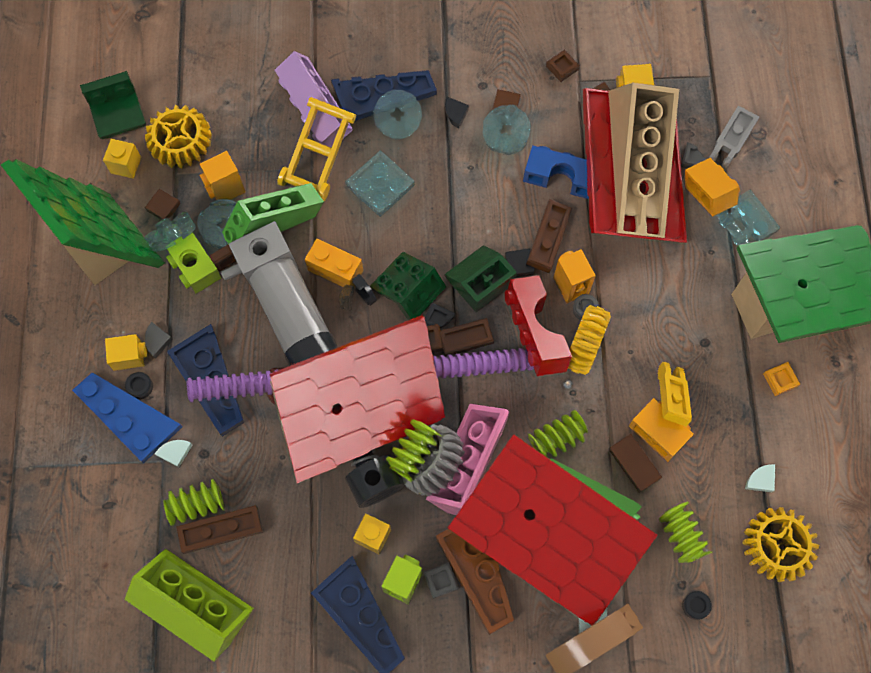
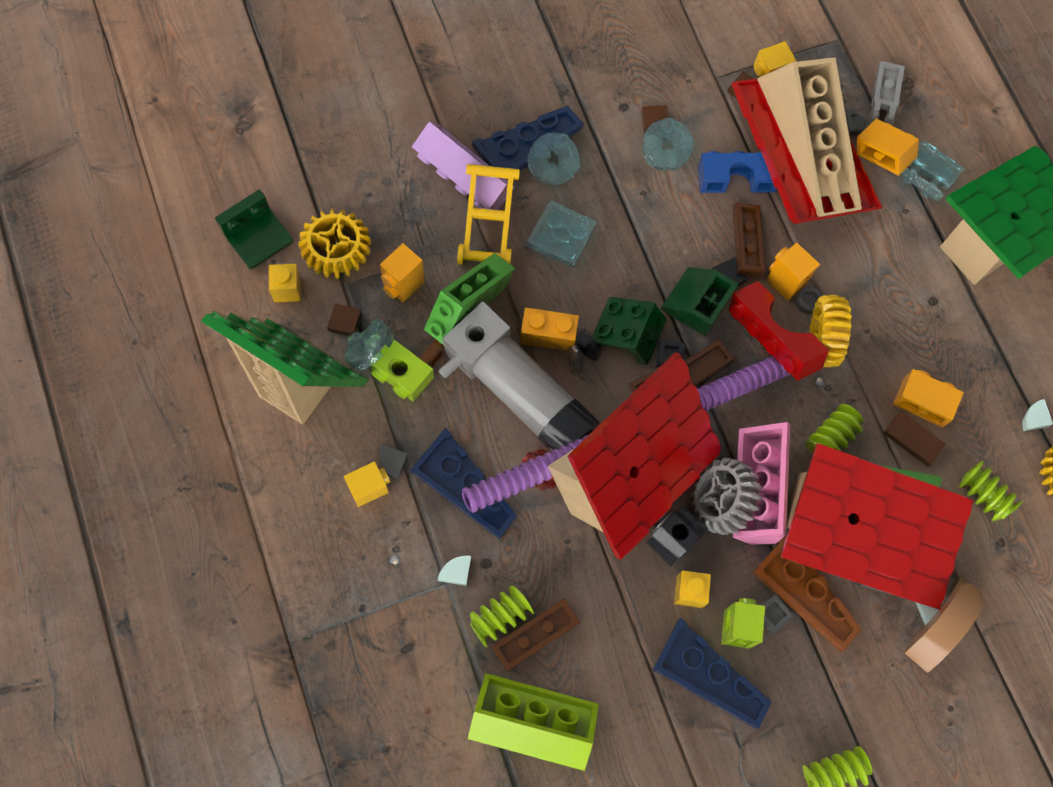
camera: 25 degrees left, 0 degrees up
(127, 417) = (398, 552): blue wing -> none
(139, 385) = (392, 514): black tile -> none
(212, 216) = (403, 313): clear light blue plate -> none
(412, 449) = (710, 490): lime piece -> none
(455, 111) = (608, 140): black tile -> none
(562, 65) = (695, 66): reddish brown tile -> none
(674, 394) = (931, 359): yellow hinge -> none
(696, 605) = (1022, 557): black tile -> none
(781, 379) = (1017, 315): light orange tile -> none

